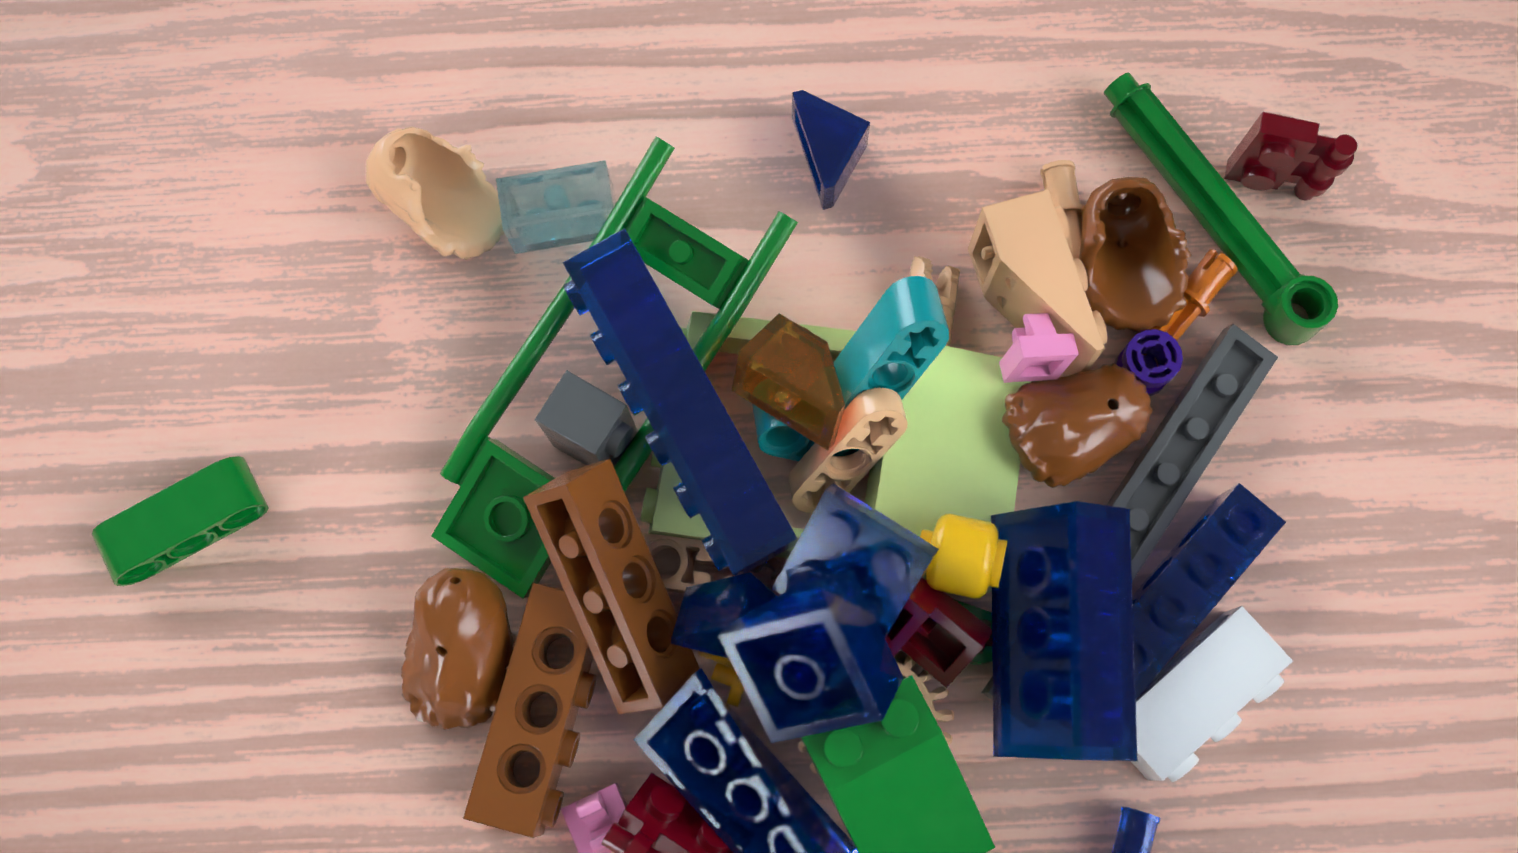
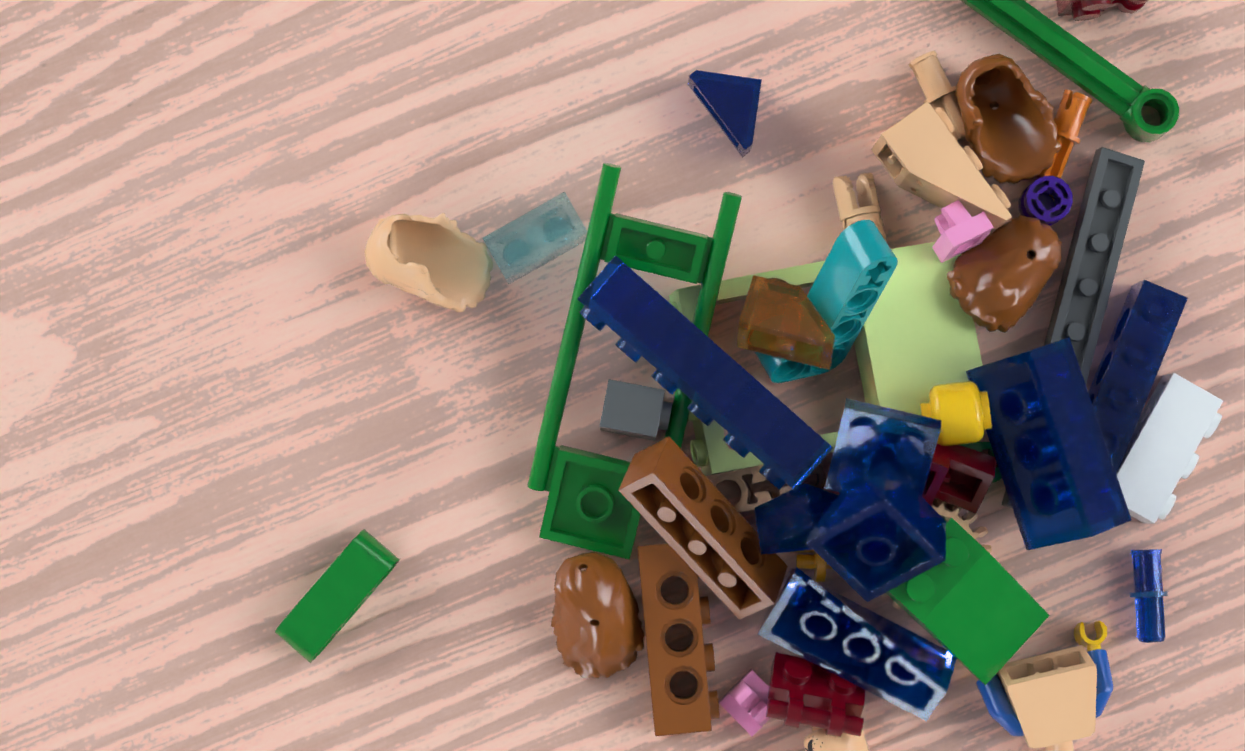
camera: 25 degrees left, 10 degrees up
(868, 423) = (854, 342): light nougat beam -> none

